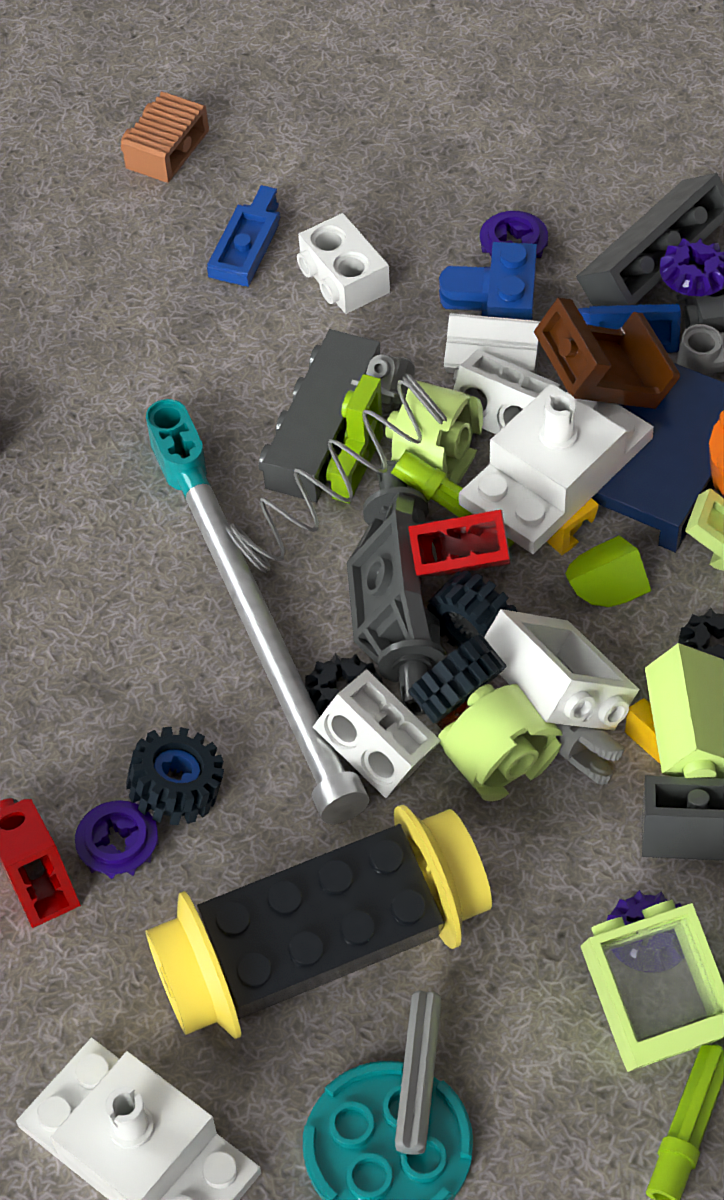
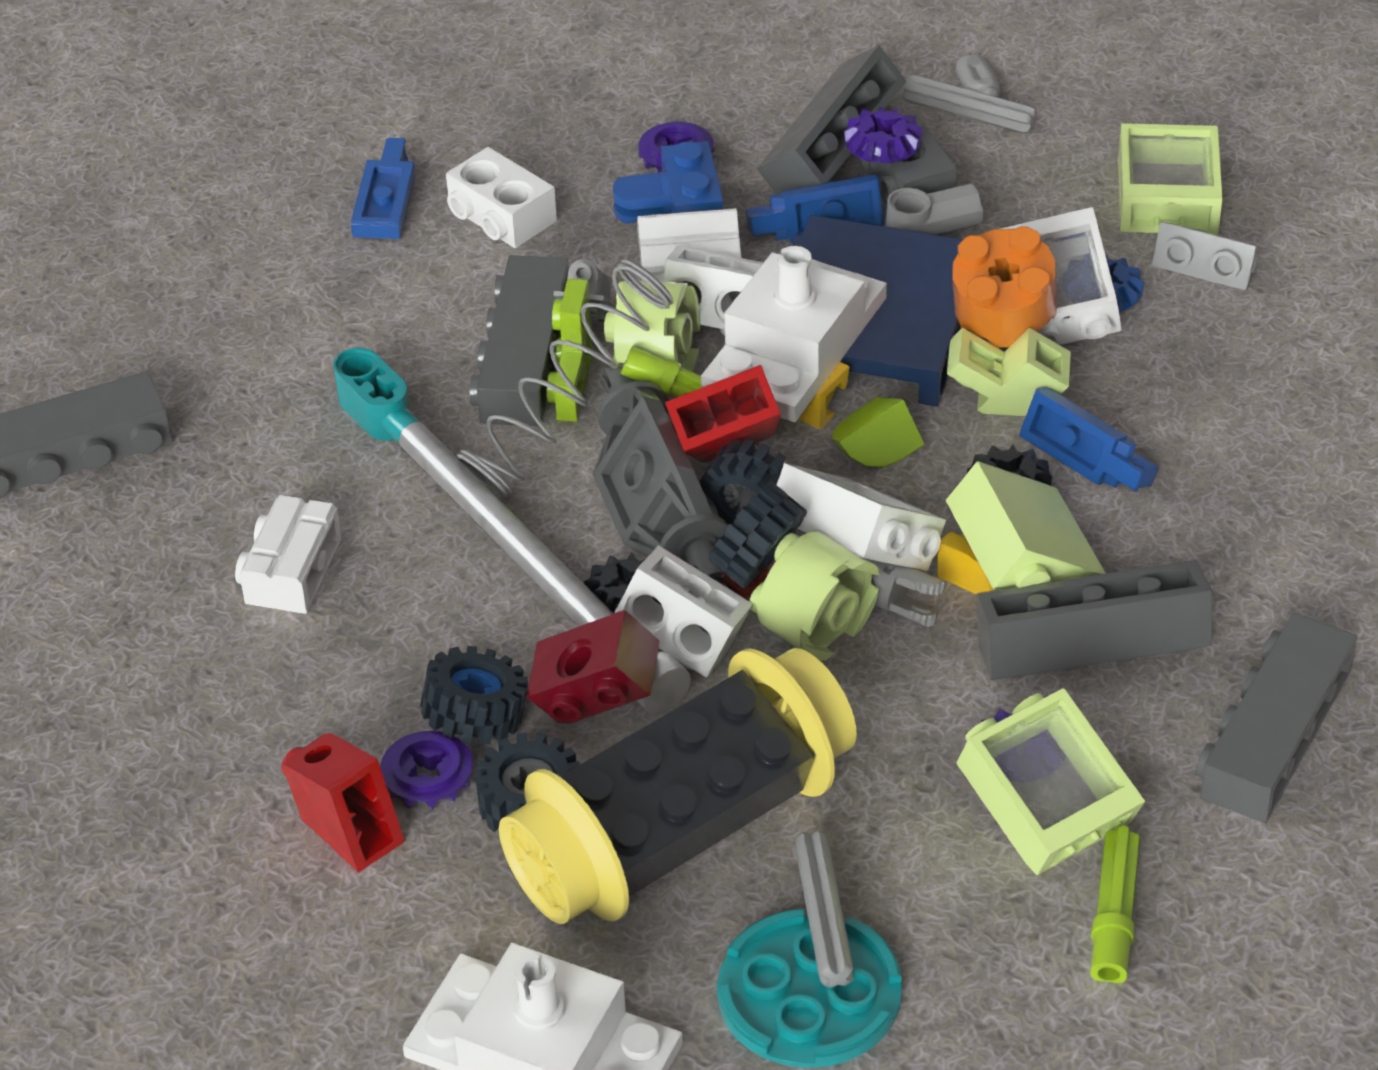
camera: 15 degrees left, 10 degrees down
(60, 594) = (289, 554): none -> white brick
(164, 136) = (261, 110): nougat brick -> none
(183, 859) = (503, 771): none -> black bush
(281, 777) = (593, 668): none -> dark red brick
(607, 363) = (836, 231): reddish brown panel -> none

